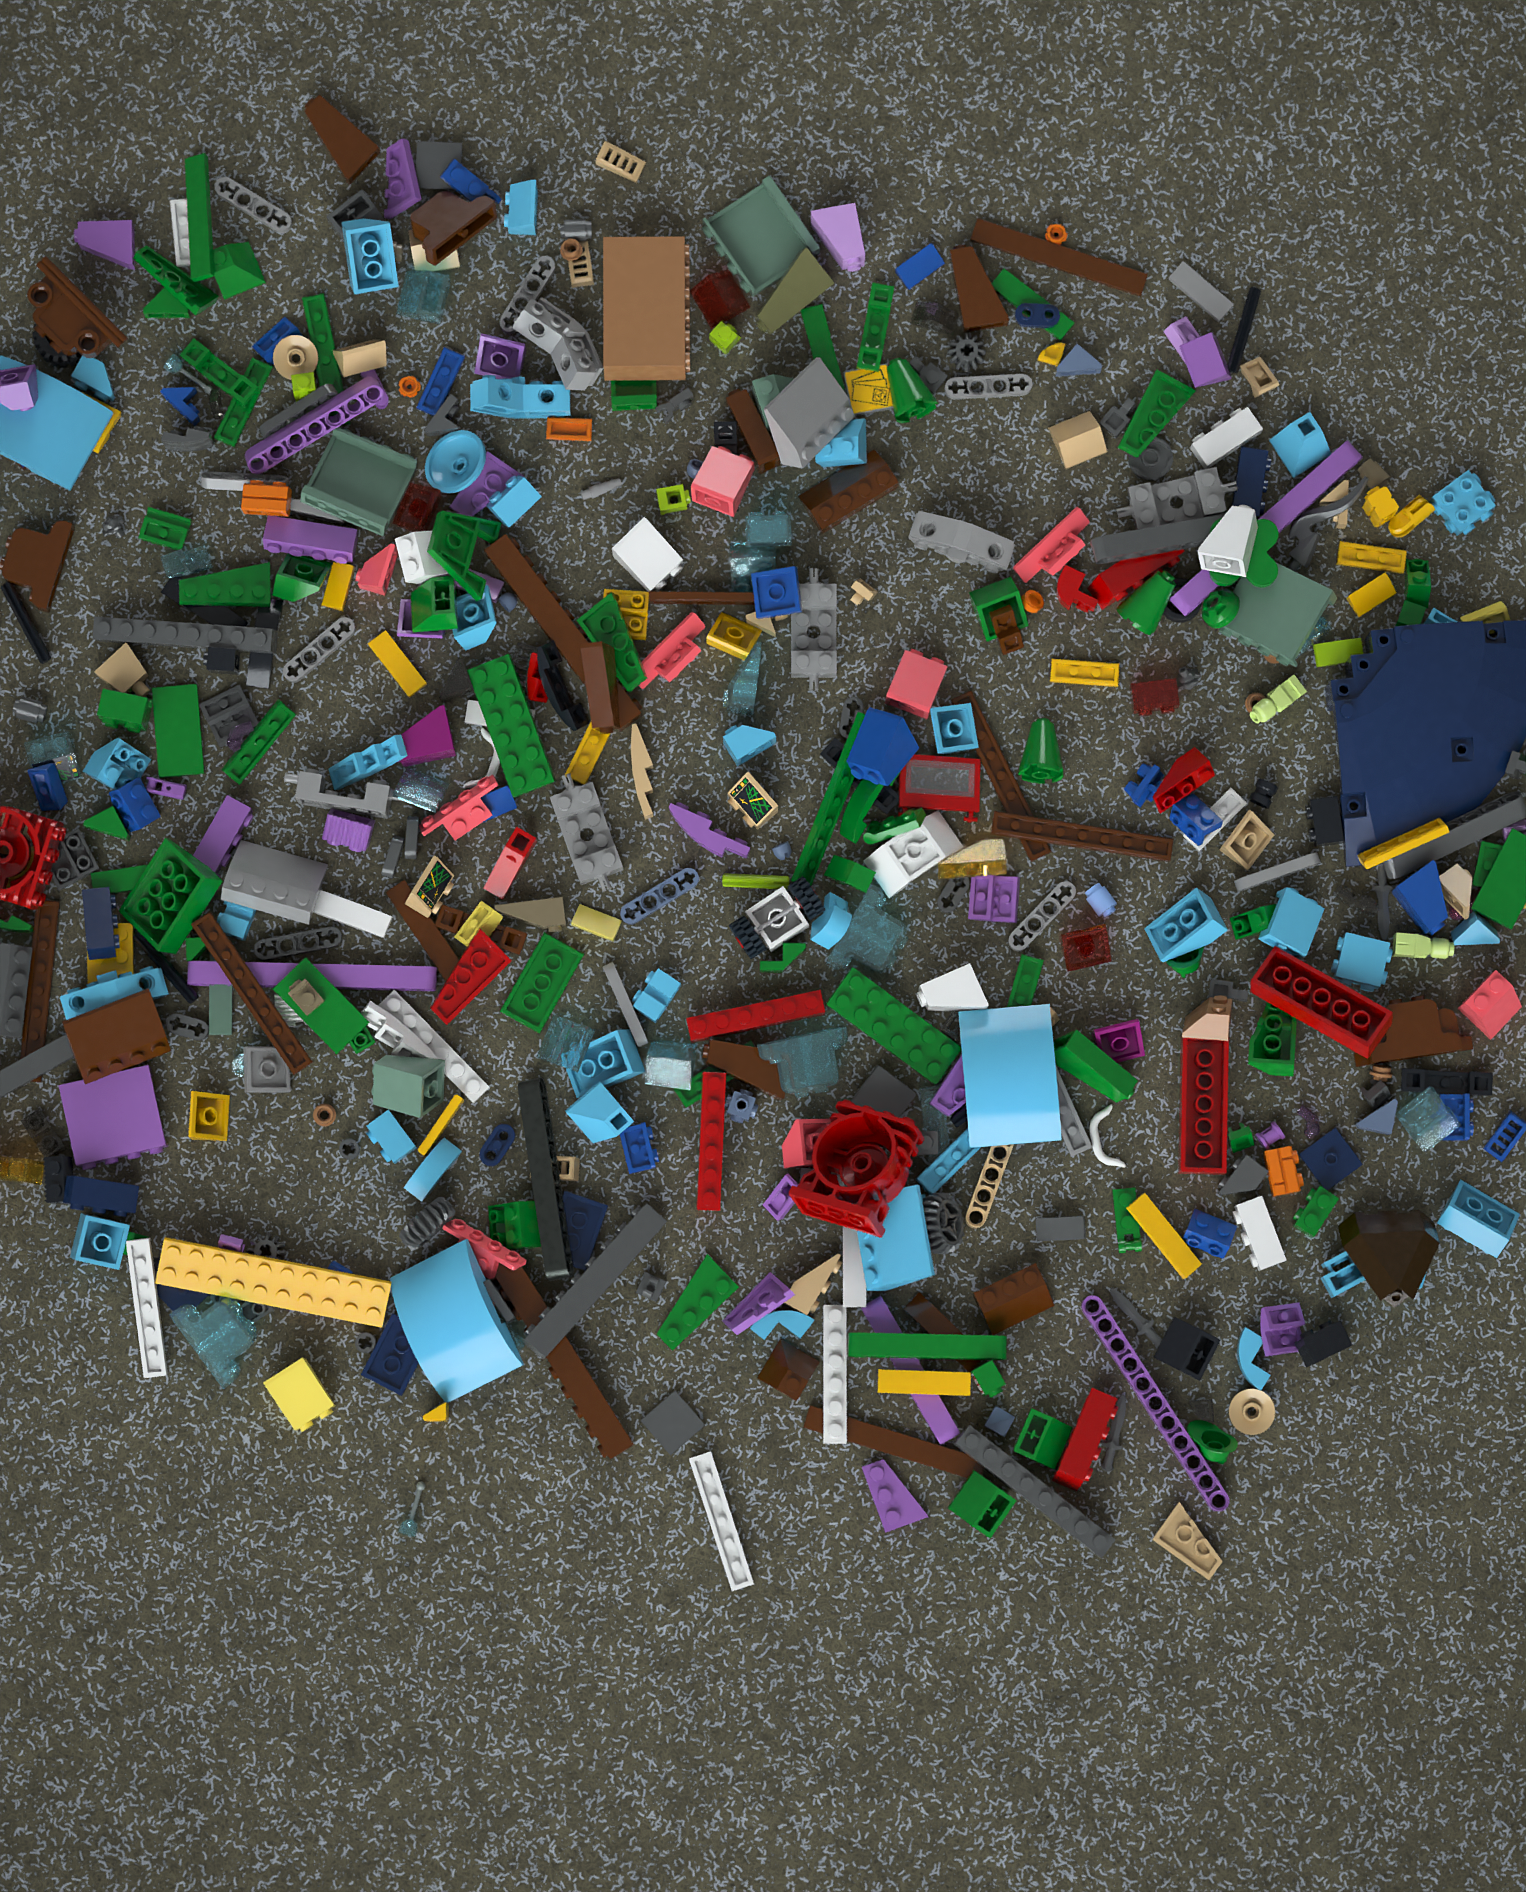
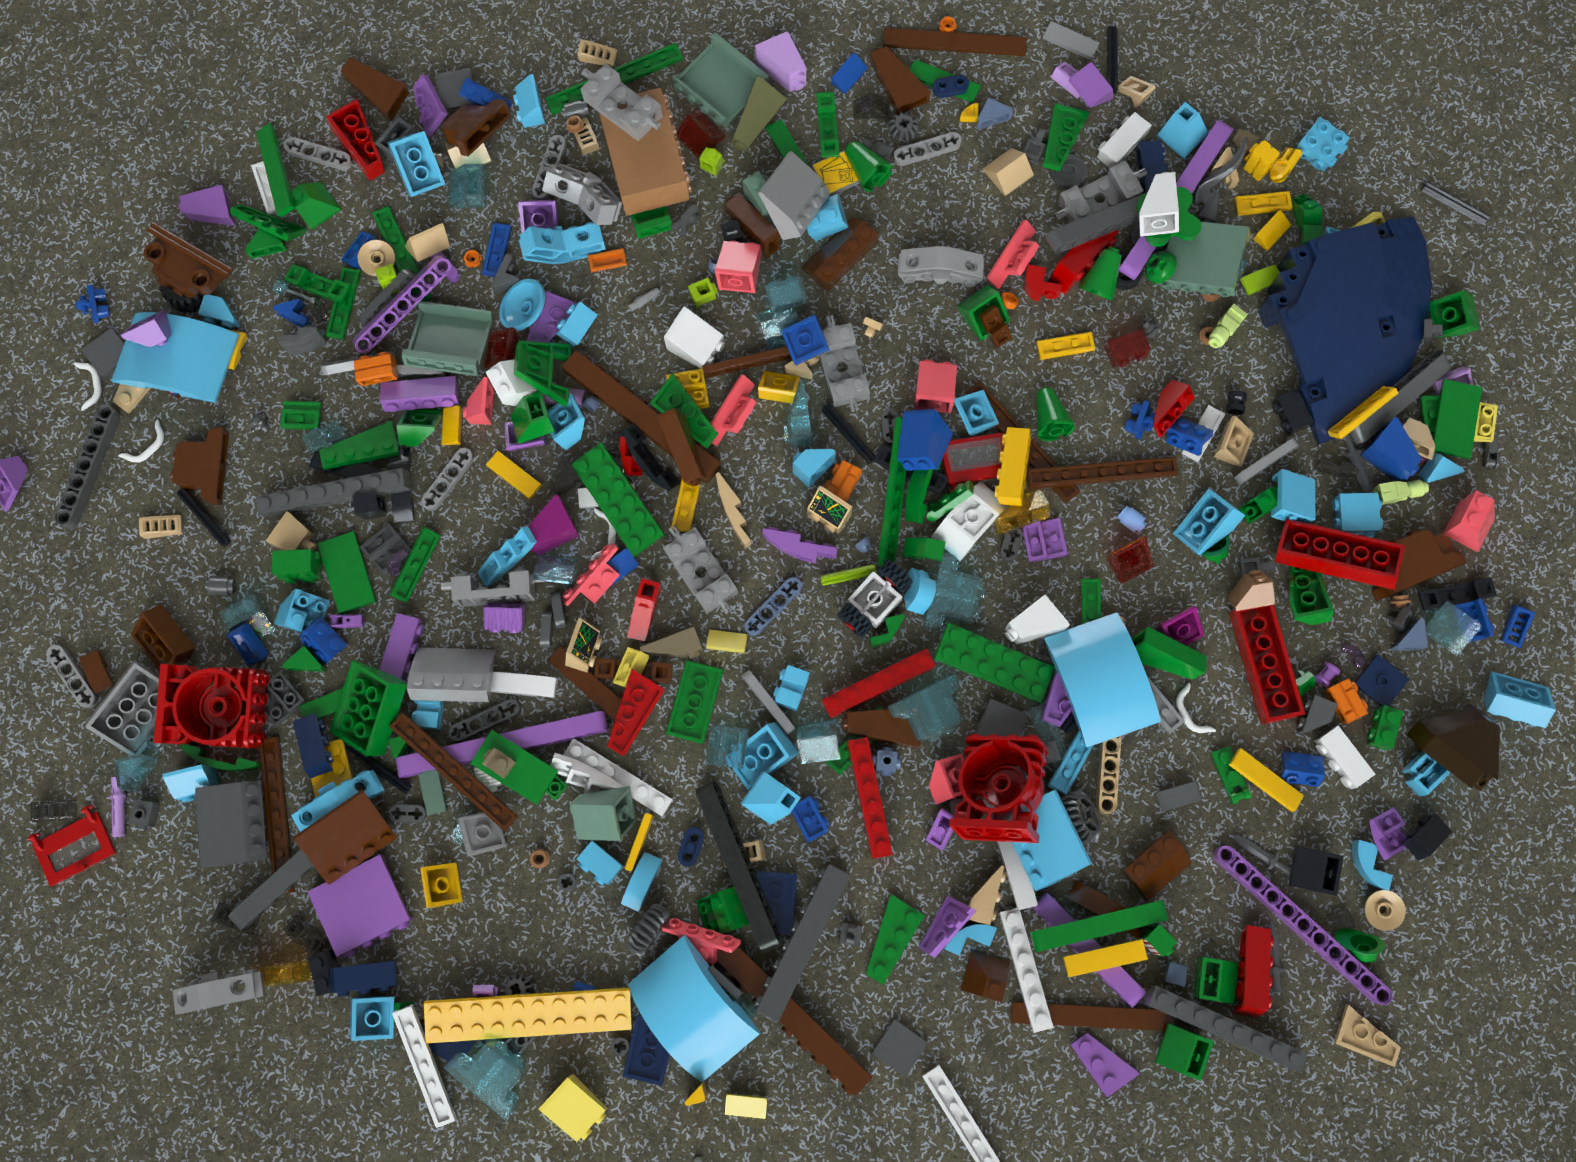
camera: 10 degrees left, 5 degrees down
(304, 198) = (354, 134): none -> red wedge
(487, 1441) = (746, 1105): none -> light yellow slope
(618, 229) = (607, 92): none -> light grey brick
(633, 199) = (628, 73): none -> green tile
(777, 770) = (844, 480): none -> orange brick
(800, 714) = (848, 433): none -> black axle
(979, 804) = (1014, 466): none -> yellow brick
(1044, 918) = (1089, 545): light grey beam -> none

